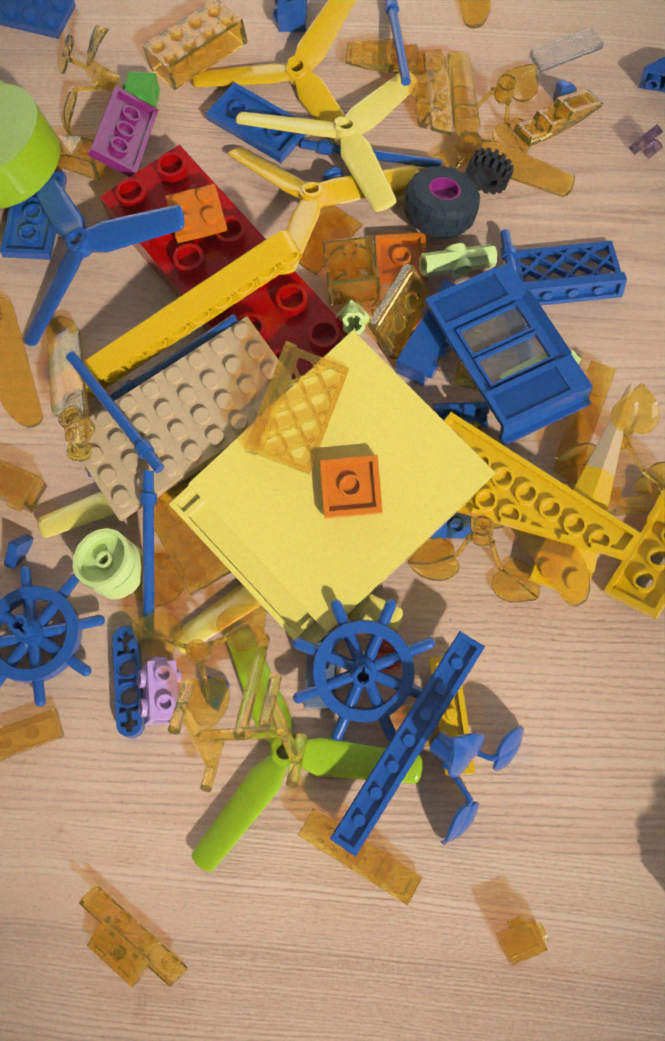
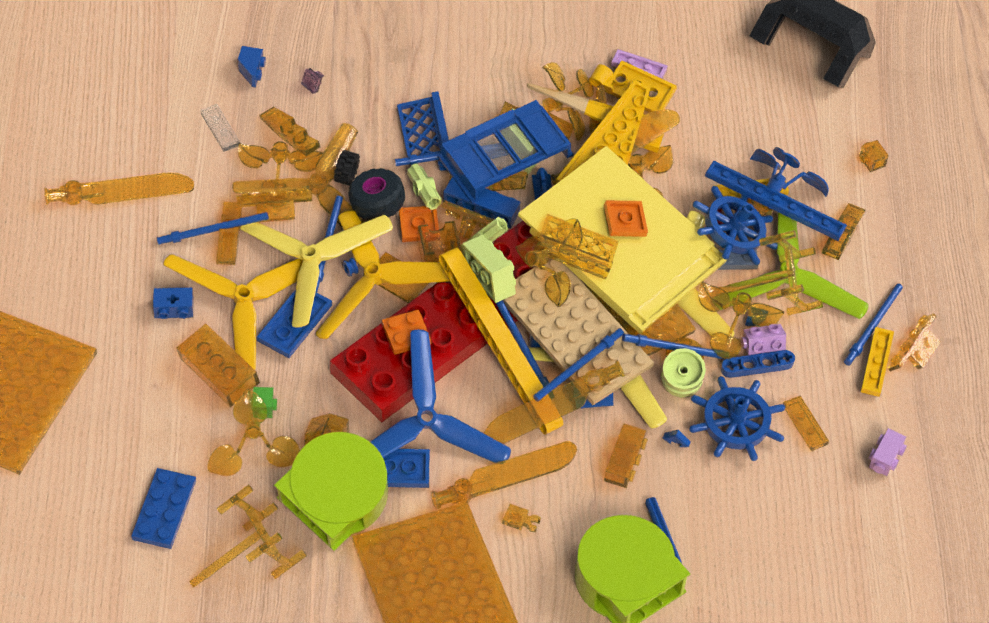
camera: 105 degrees left, 15 degrees down
(106, 869) = (877, 361): none -> yellow plate
(123, 132) = (315, 402): magenta plate -> none
(135, 840) = (857, 348): none -> blue bar
(257, 343) = (557, 285): none -> clear yellow plant
(264, 293) = (490, 268): none -> yellowish green brick
(563, 88) = (264, 128): blue tile -> none

